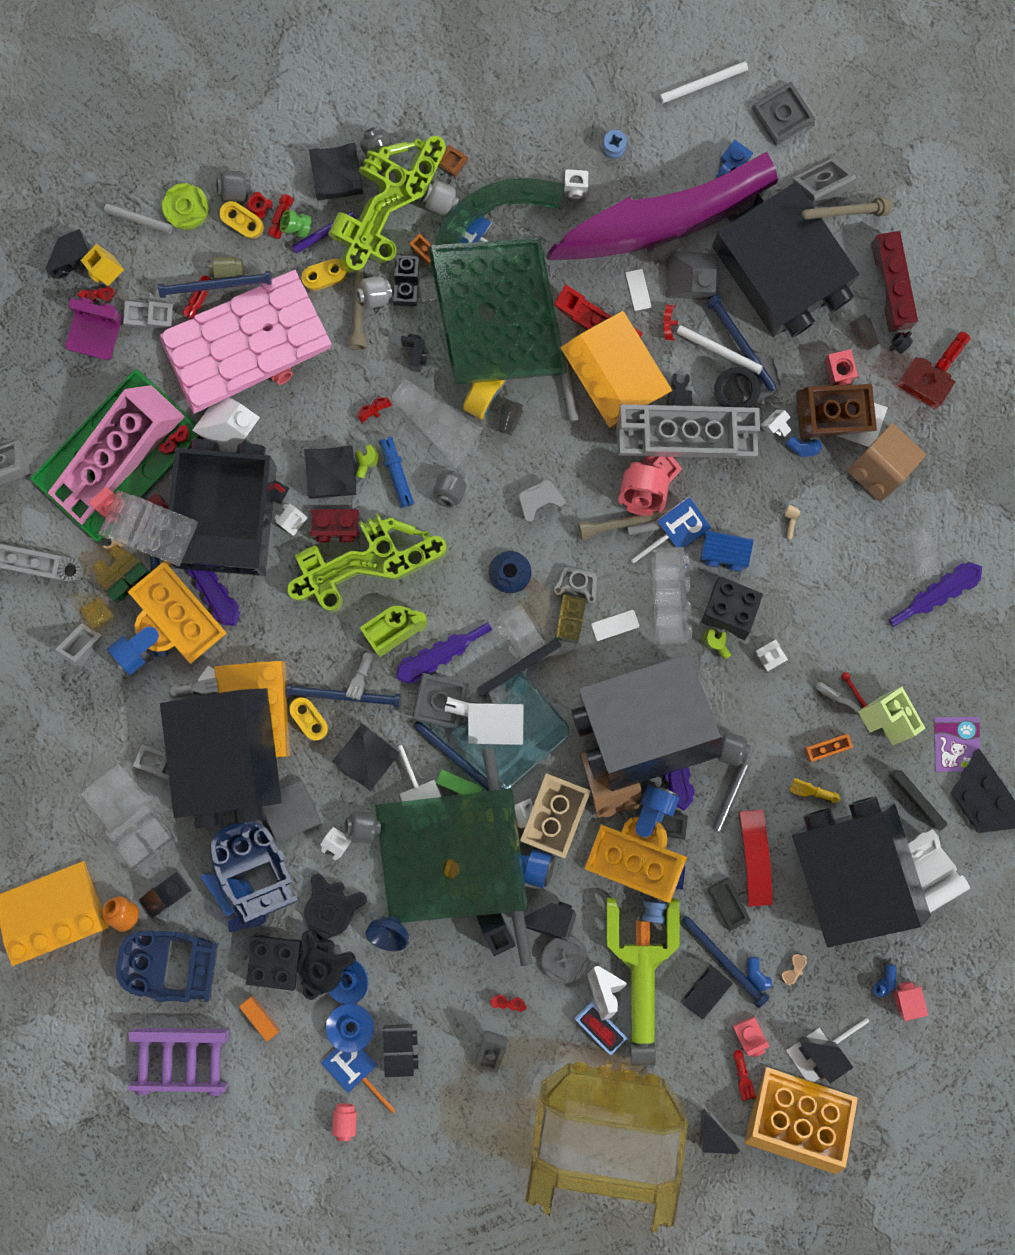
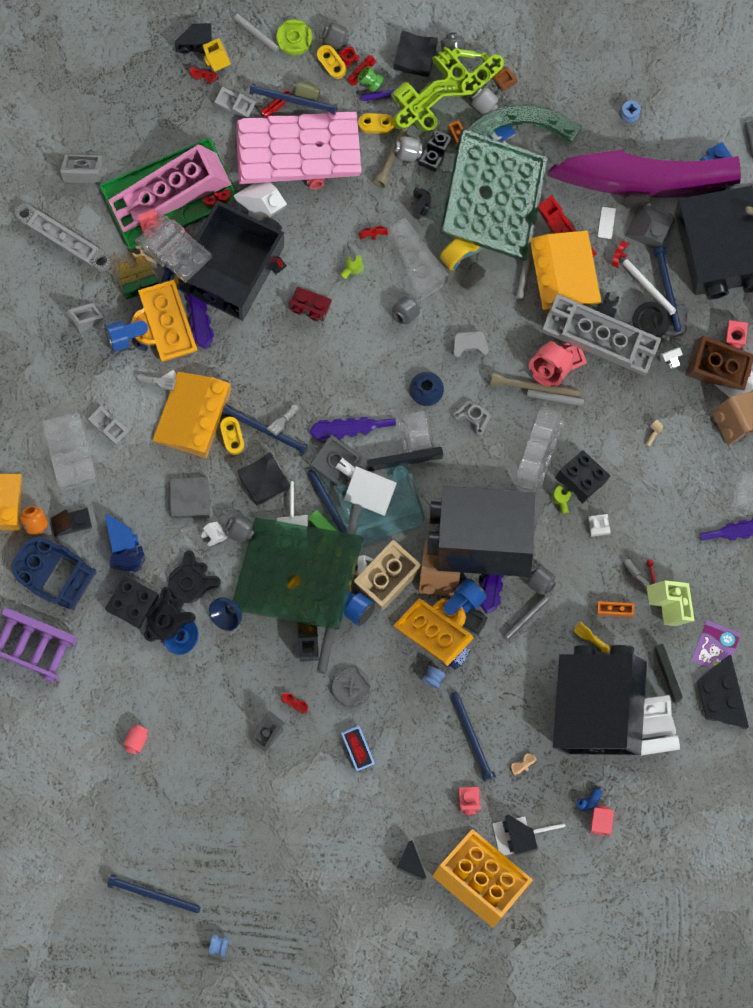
camera: 20 degrees right, 10 degrees down
(93, 329) = (191, 97): magenta bracket -> none
(96, 612) = (107, 299): clear yellow tile -> none
(221, 756) = (158, 431): black brick -> none
(243, 849) = (145, 509): dark blue slope -> none
(259, 1018) = (104, 639): orange piece -> none
(291, 519) = (279, 287): white tile -> none
(330, 472) = (322, 264): black brick -> none
(348, 1040) = (166, 662): blue dish -> none
(351, 1069) = (157, 702): blue piece -> none
(371, 563) = (323, 340): lime beam -> none
(386, 634) = (316, 396): lime piece -> none
(396, 472) = (371, 283): blue pin -> none
(398, 1050) = (198, 703): black brick -> none
(552, 920) = (353, 652): black slope -> none
(570, 619) = (457, 438): clear yellow hips -> none
(576, 190) = (589, 133): white bracket -> none
(602, 987) = (372, 719): white slope -> none
(608, 1138) = (334, 817): clear yellow windscreen -> none
(615, 625) = (490, 458): white sticker -> none
(643, 960) = (409, 710): lime piece -> none
(682, 526) = (570, 402): blue piece -> none
(704, 82) = (715, 92): white bar -> none
(706, 992) = (449, 754): black panel -> none
(726, 551) = (595, 434): blue brick -> none
(729, 904) = (492, 695): pearl dark grey tile -> none
(745, 1084) = (450, 836): red piece -> none
(755, 976) = (491, 757): blue arm -> none
(756, 858) = (527, 670): red slope -> none
(804, 449) = (685, 384): blue arm -> none

